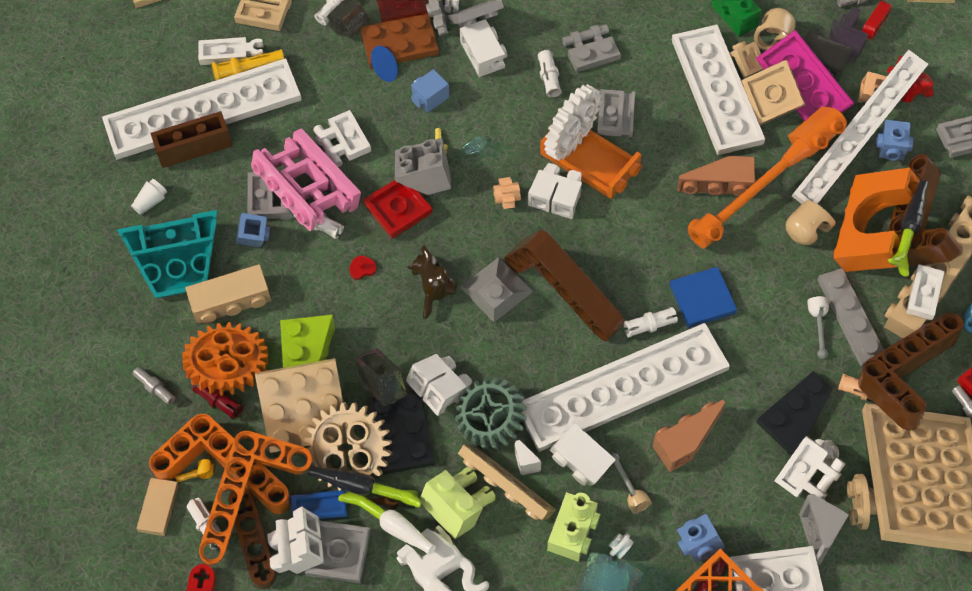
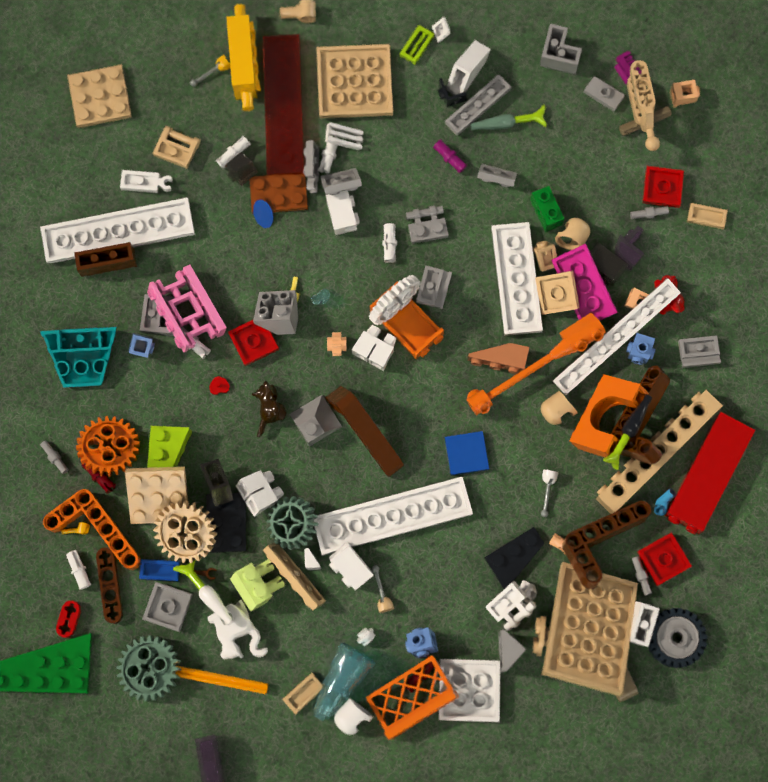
camera: 10 degrees right, 15 degrees up
(149, 196) = (68, 301): white cone -> none
(157, 507) = (46, 551): tan tile -> none
(228, 294) = (117, 394): tan brick -> none
(236, 66) = (148, 198): yellow pin -> none
(238, 485) = (102, 551): orange beam -> none
(296, 543) = (139, 597): white hips -> none
(348, 134) = (226, 274): white plate -> none
(363, 484) = (192, 563): black piece -> none
(429, 91) = (293, 244): medium blue brick -> none
(573, 525) = (334, 618): yellowish green brick -> none
(650, 322) = (423, 467): white pin -> none
(682, 442) = (427, 566): nougat slope -> none
(850, 315) = (573, 487): light grey plate -> none
(877, 19) = (656, 237): red beam -> none
(925, 292) = (628, 484): white plate -> none

